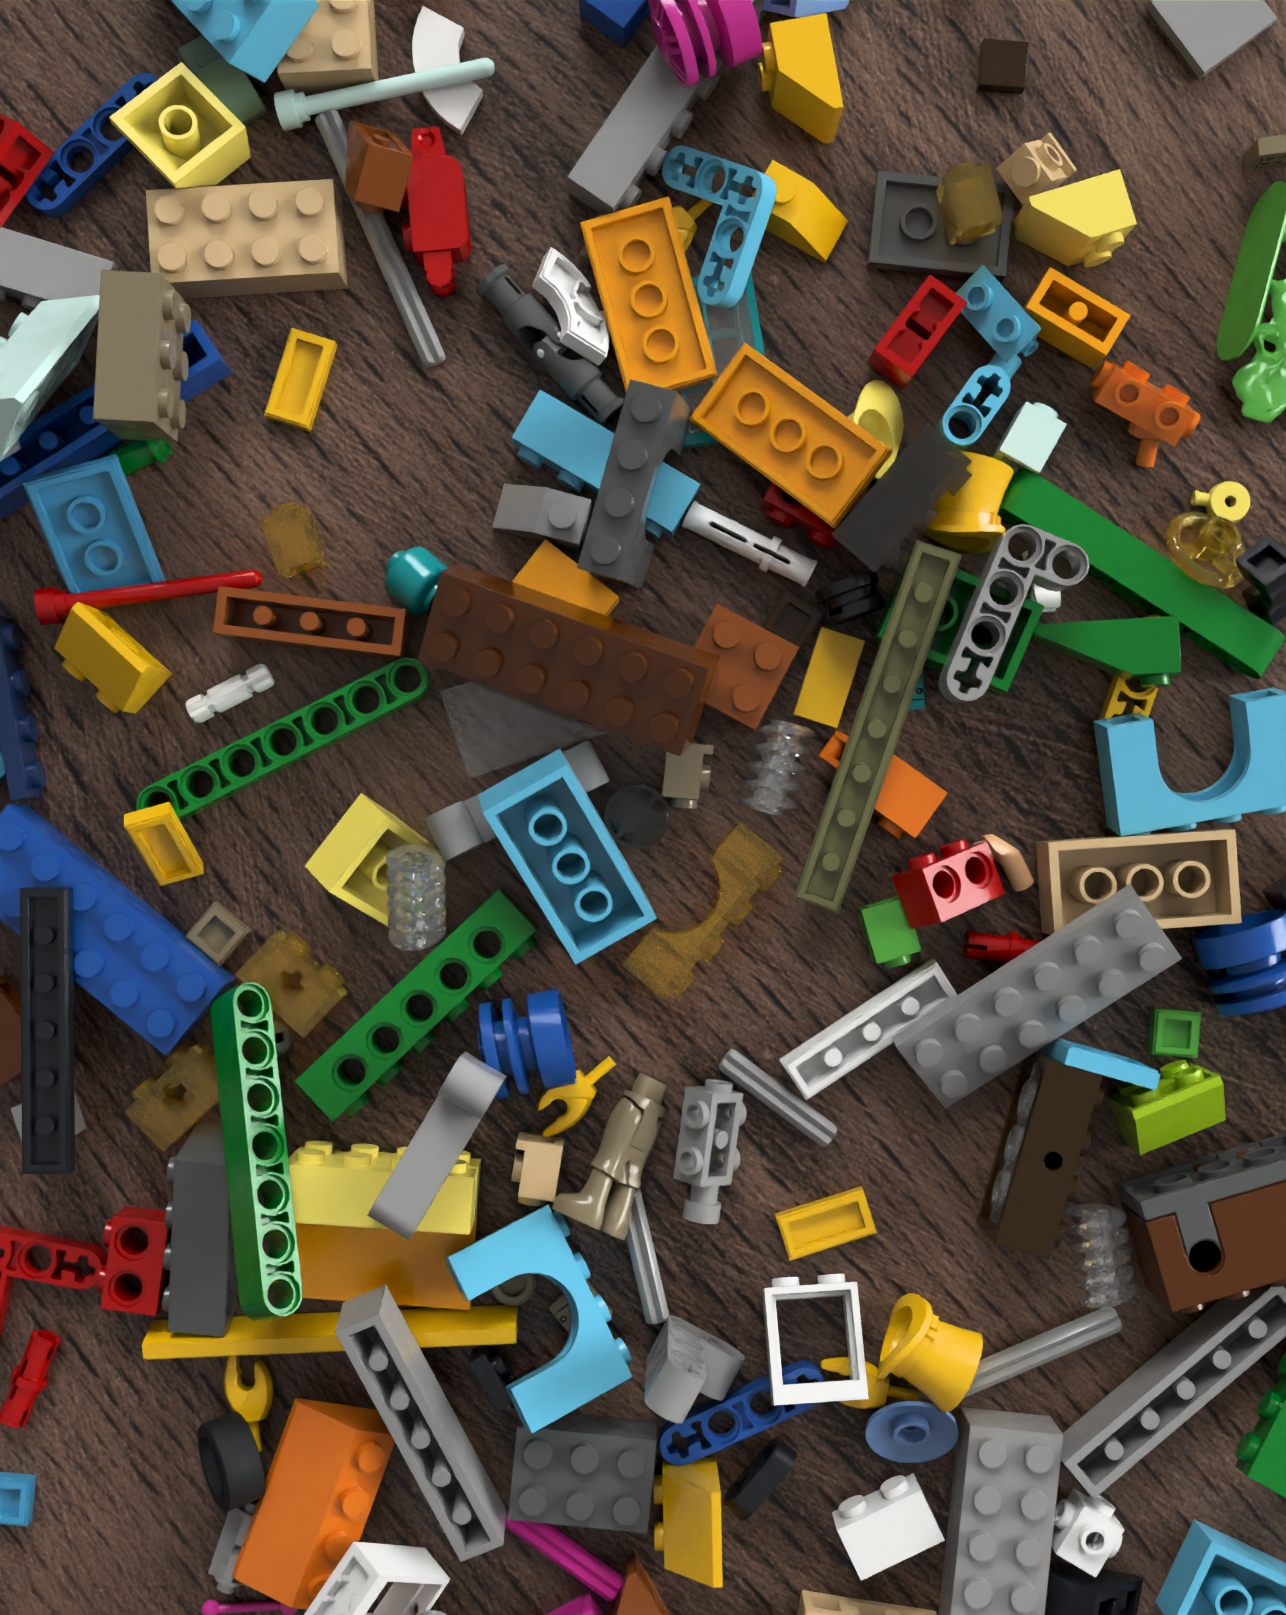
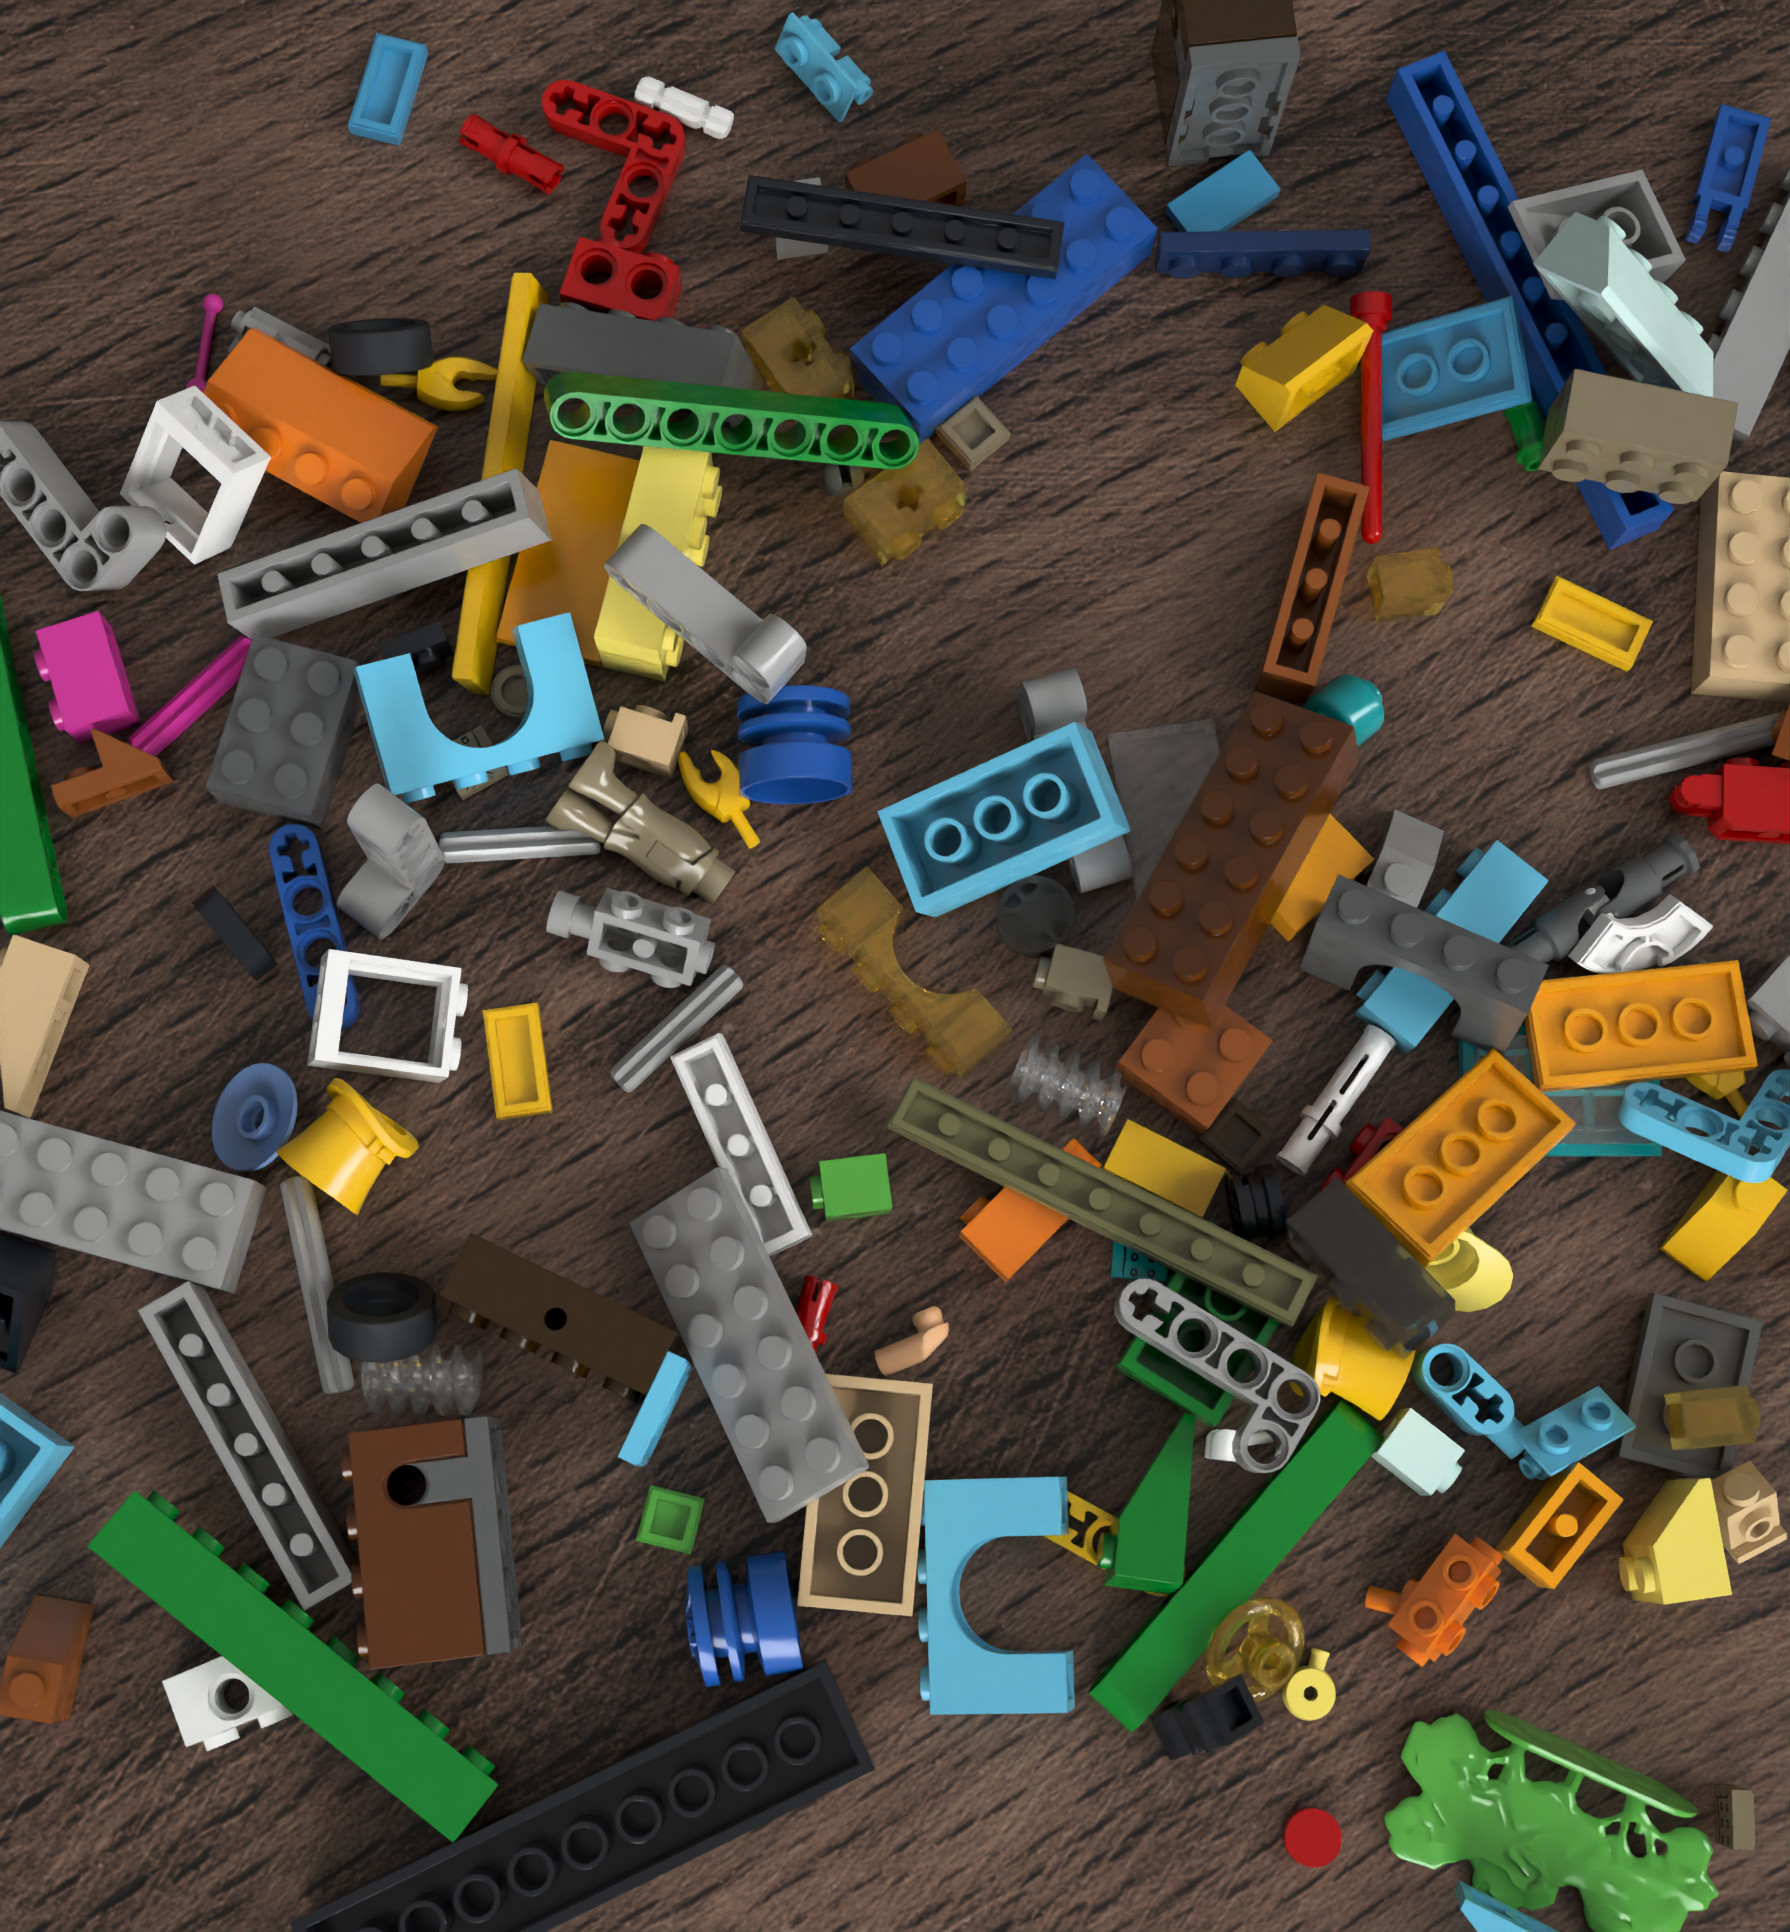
camera: 95 degrees right, 10 degrees down
(163, 843) = (1086, 386): yellow tile -> none
(229, 693) = (1244, 488): white axle -> none
(303, 723) = (1181, 514): green beam -> none
(325, 1078) = (791, 521): green brick -> none
(355, 853) = (1028, 613): light yellow slope -> none
(416, 897) = (983, 649): clear piece -> none
(691, 1520) = (208, 844): yellow slope -> none
(877, 1388) = (313, 1081): yellow hand -> none
(886, 1525) = (150, 1071): white brick -> none
(916, 332) = (1563, 1333): red brick -> none
(947, 884) = (897, 1262): red brick -> none
(1083, 1289) = (381, 1317): none -> black tyre
(1086, 1531) = (76, 1301): white brick -> none
(1183, 1104) = (585, 1487): lime slope -> none

